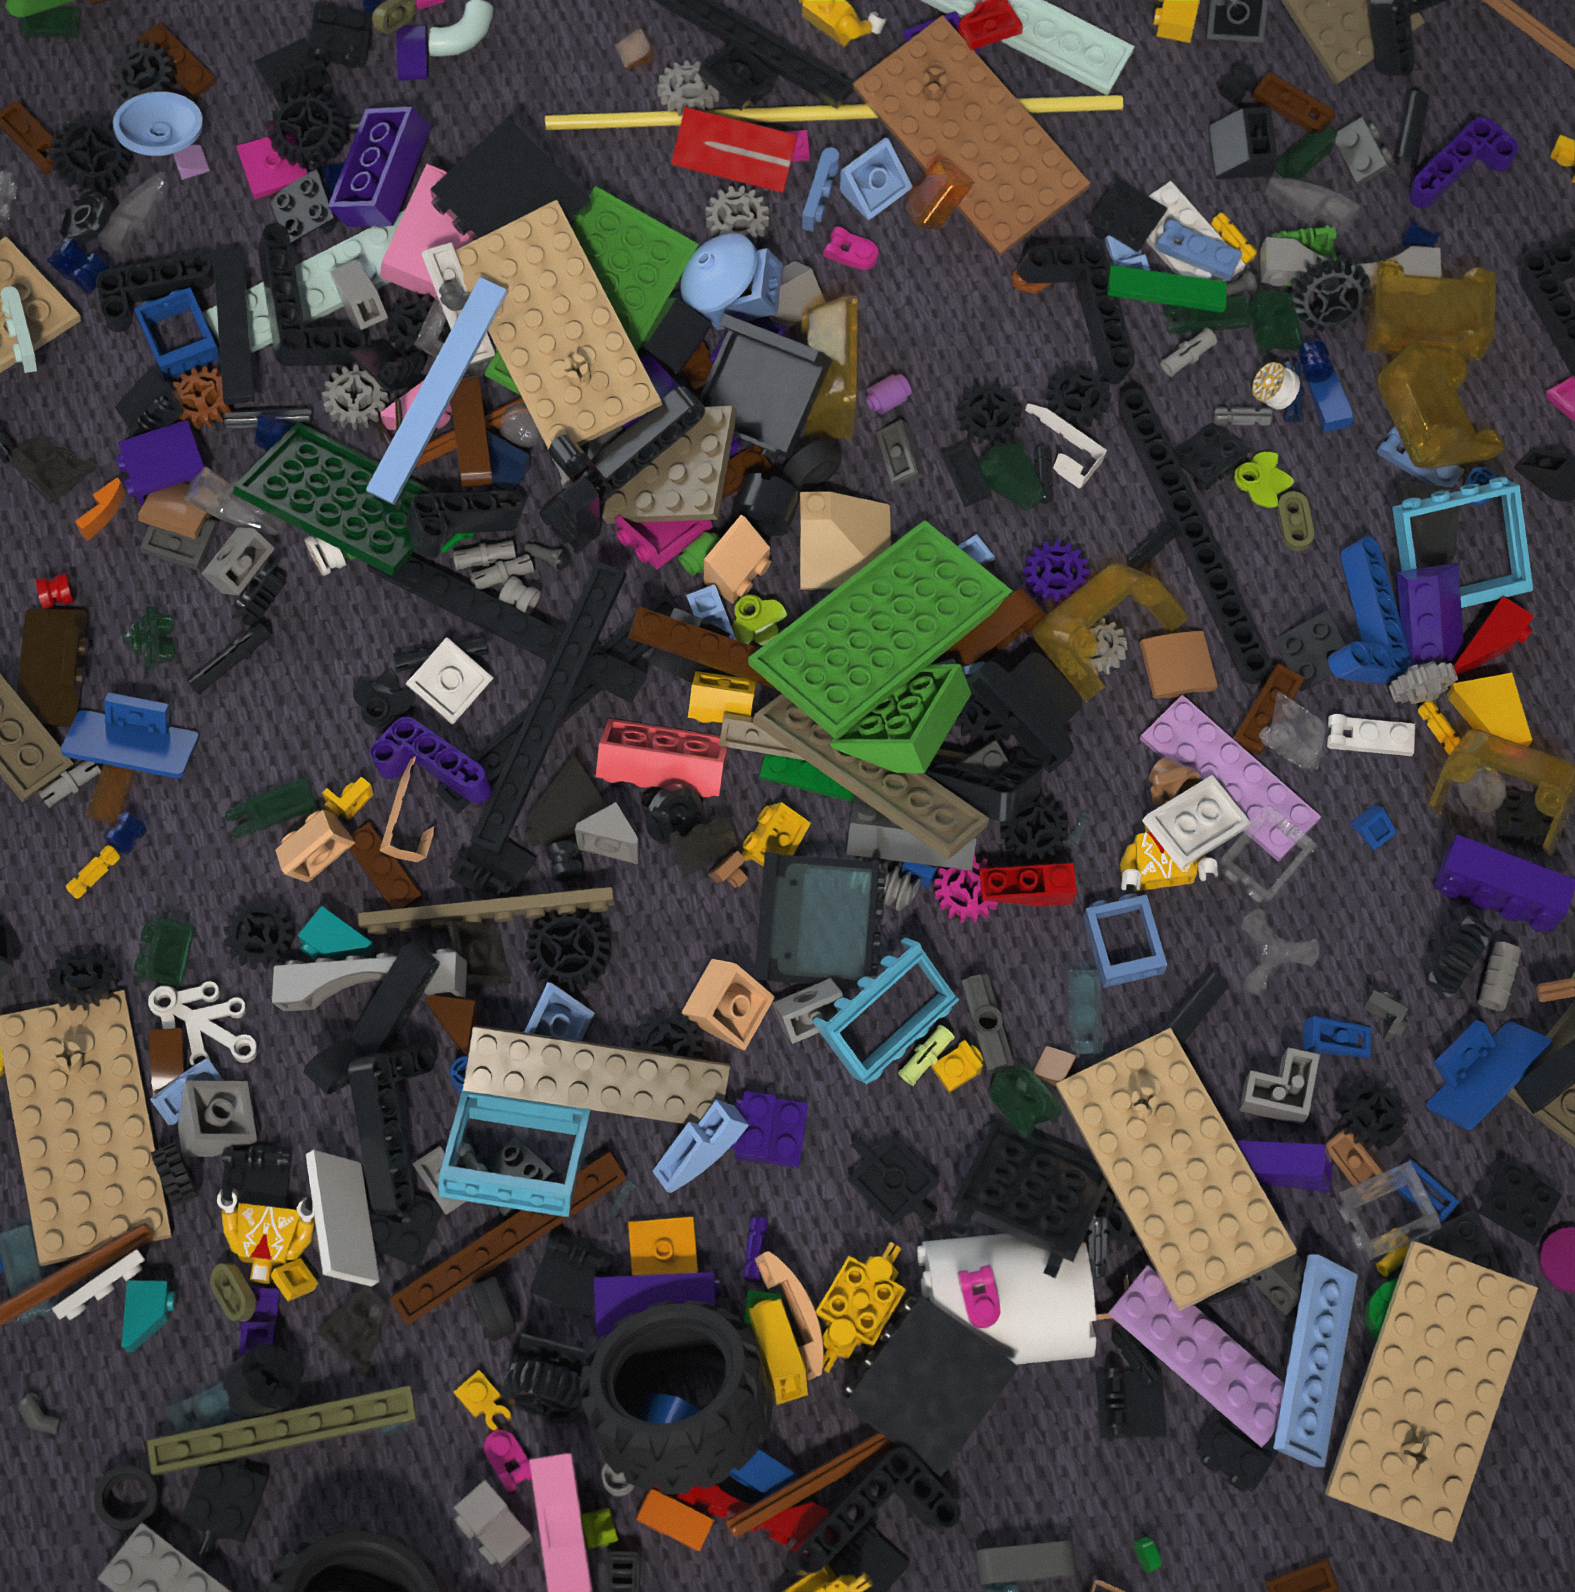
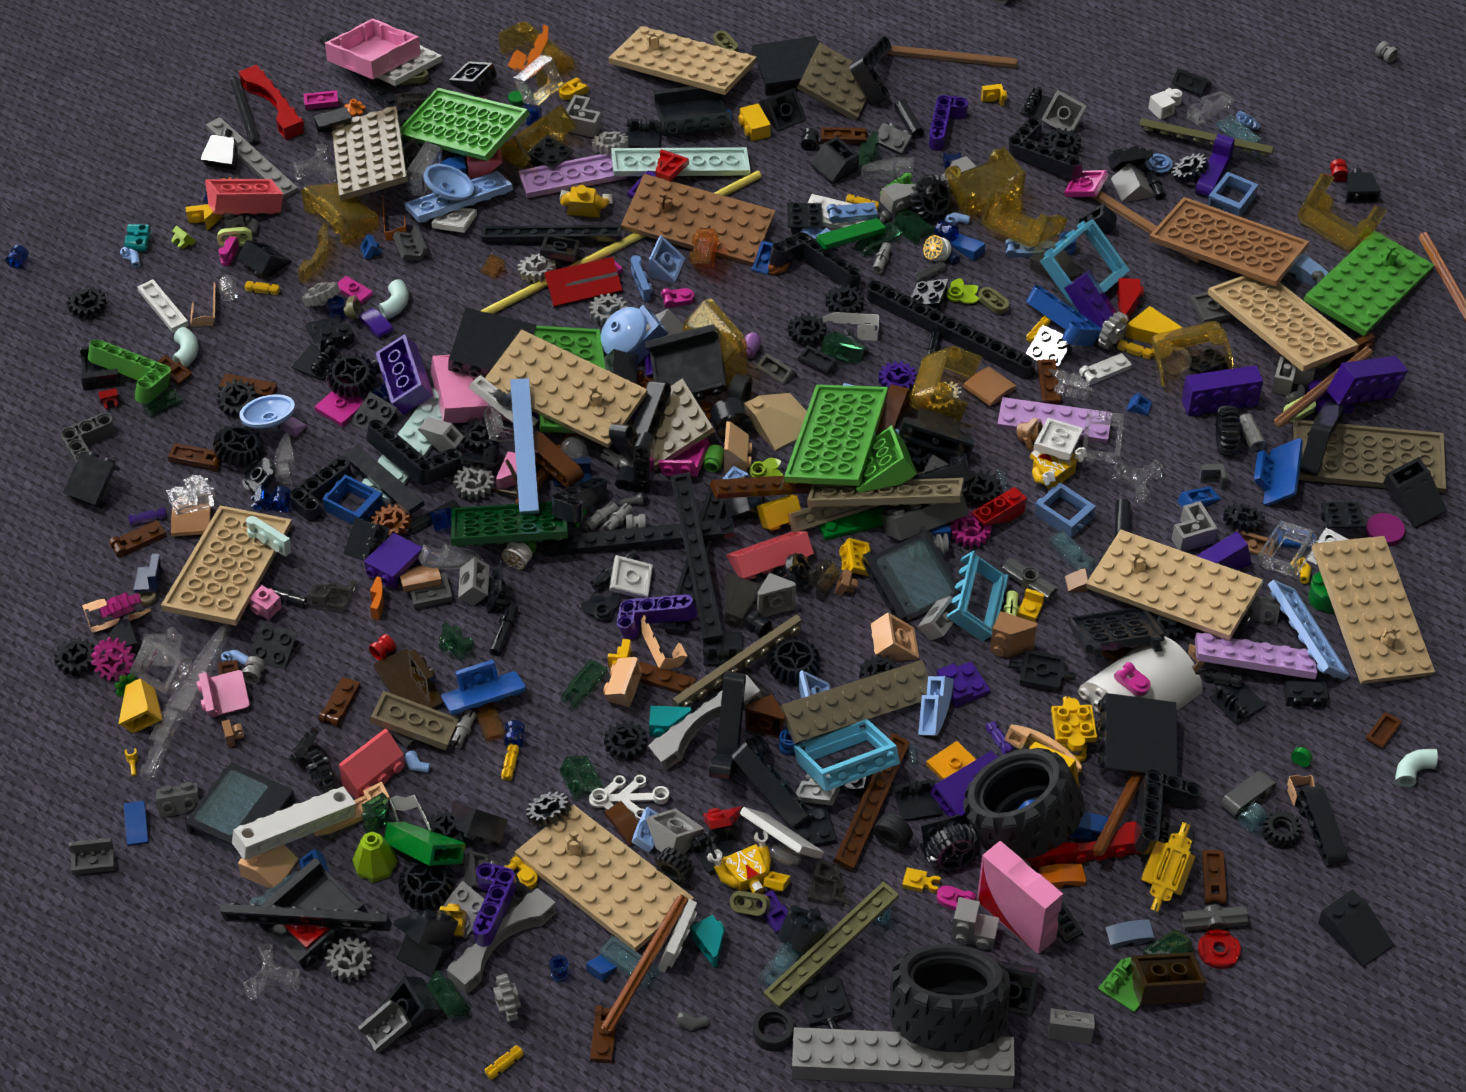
camera: 30 degrees left, 20 degrees down
(290, 1138) = (721, 818): none -> red wing
(883, 1104) = (1012, 635): none -> medium nougat slope
(1015, 253) = (762, 258): none -> blue slope
(1023, 1099) = (1075, 601): clear green bracket -> none
(1342, 602) = (1031, 335): none -> yellow axle
(1351, 345) = (955, 218): none -> light blue arm

